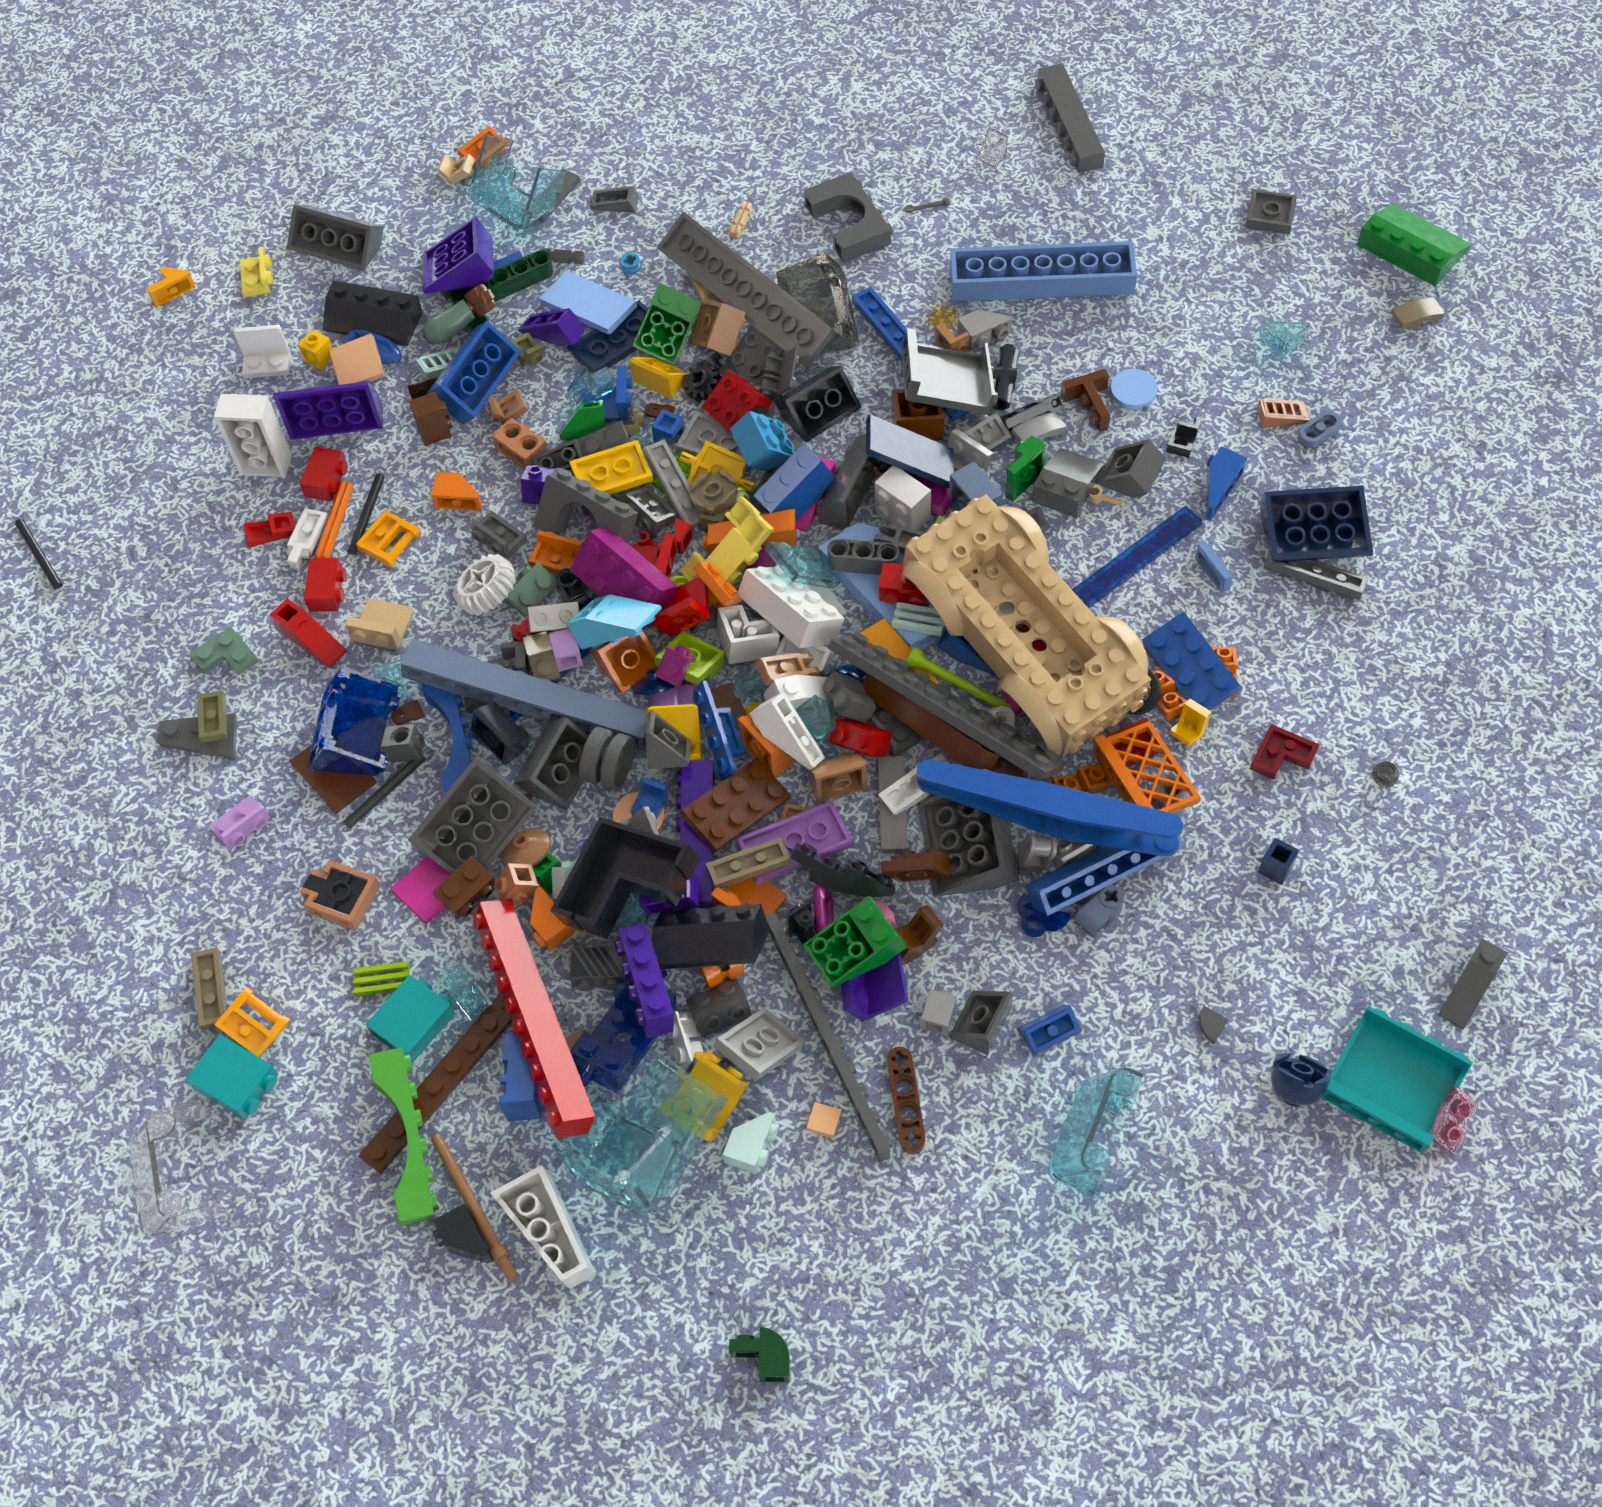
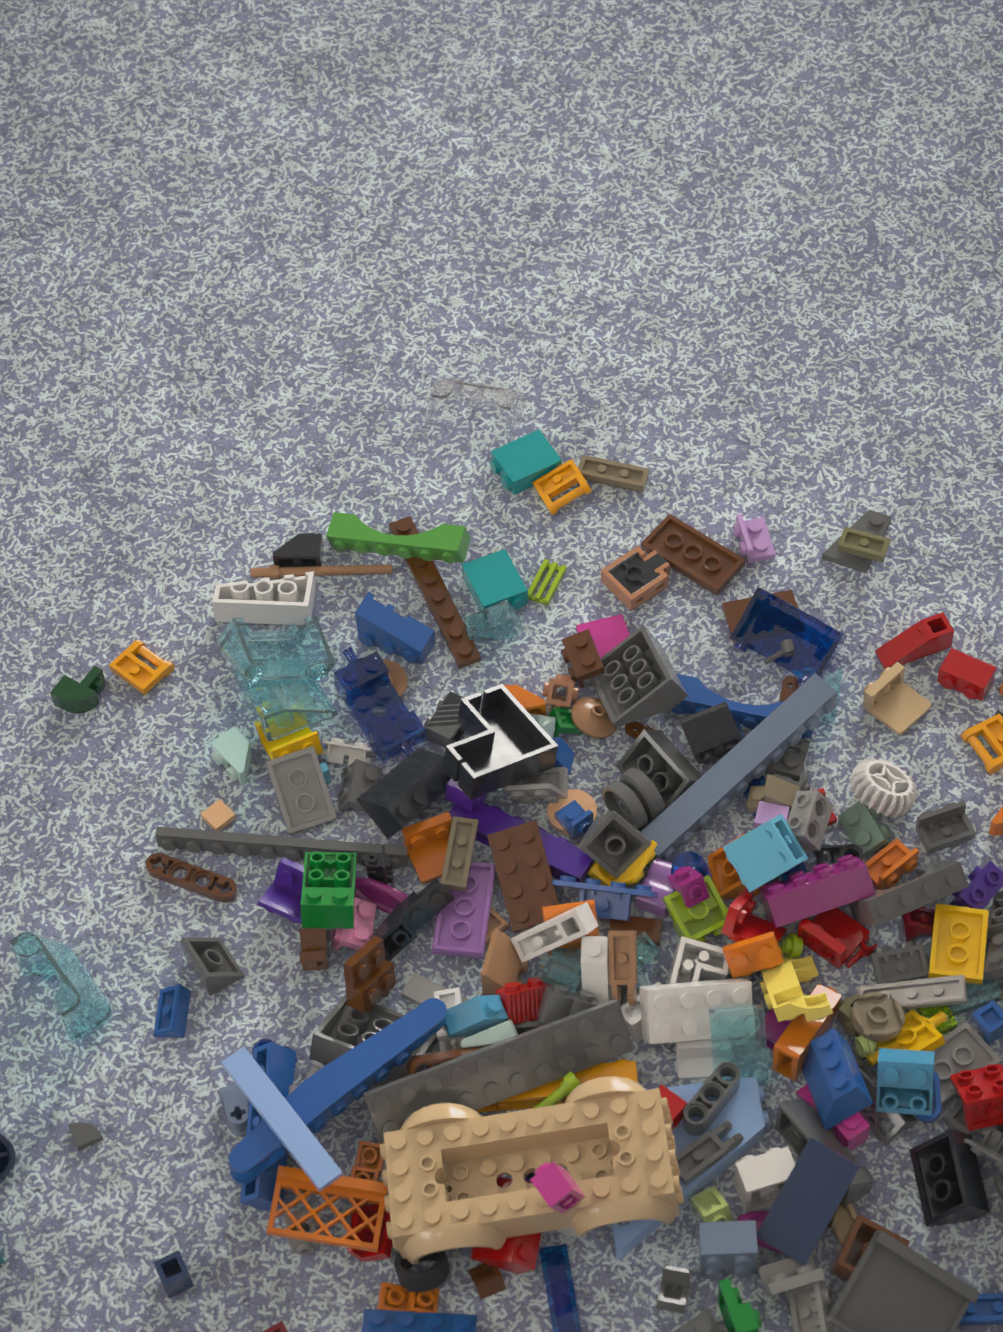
camera: 120 degrees right, 5 degrees down
(223, 647) = (943, 586): sand green plate -> none
(284, 864) = (693, 554): none -> reddish brown plate
(366, 726) = (787, 650): none -> dark grey hand
(383, 791) = (721, 646): pearl dark grey bar -> none
(402, 743) = (753, 668): dark grey brick -> none
(533, 1019) = (430, 646): brick -> none
(645, 980) = (397, 722): dark purple brick -> none
(683, 535) = (850, 975): red slope -> none
(704, 1315) = (136, 671): none -> light orange plate
(899, 755) = (475, 1015): none -> dark azure slope
(903, 727) = (491, 1035): none -> light aqua slope
(938, 1011) = (240, 934): light grey brick -> none
(1047, 553) = (557, 1187): none -> dark pink brick
(1115, 813) = (282, 1119): none -> light blue tile
(1191, 723) = (355, 1293): yellow bracket -> none

